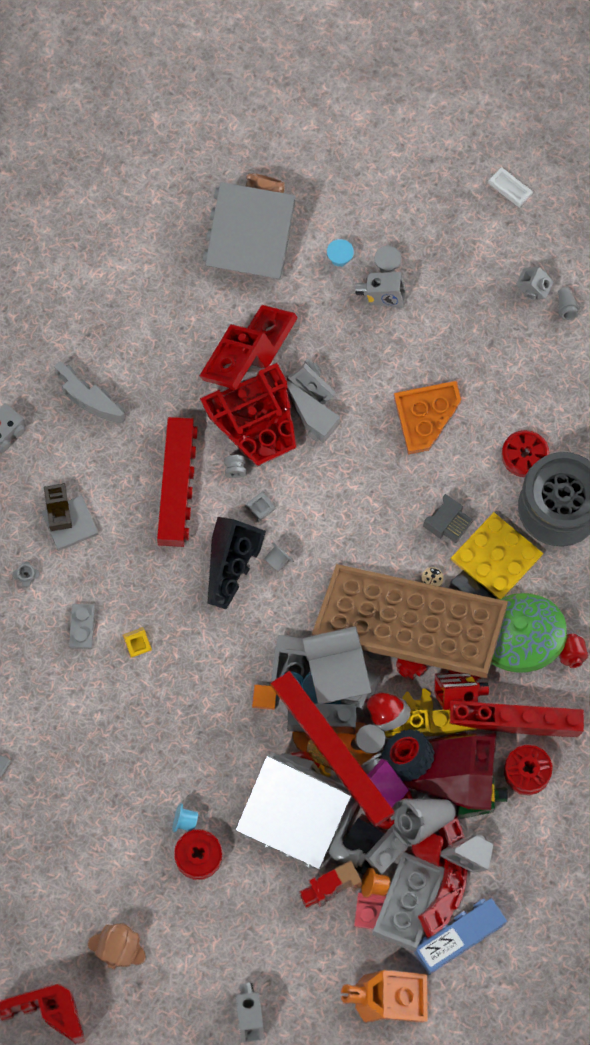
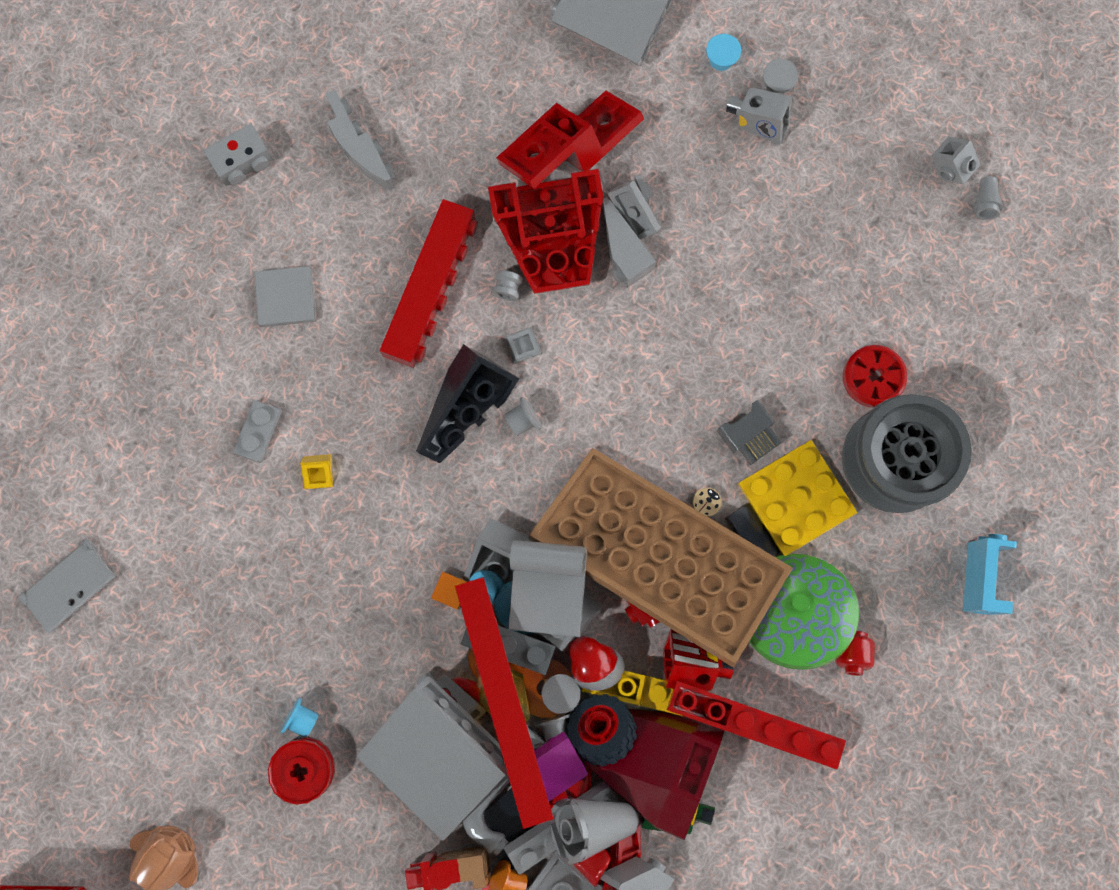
camera: 20 degrees right, 10 degrees up
(23, 568) = (204, 341): light grey plate -> none
(57, 507) = (274, 273): dark brown slope -> none
(425, 702) = (645, 661): yellow piece -> none
(426, 413) = (765, 287): orange plate -> none
(510, 187) = (962, 29): white tile -> none
(522, 781) = (764, 802): red wheel -> none

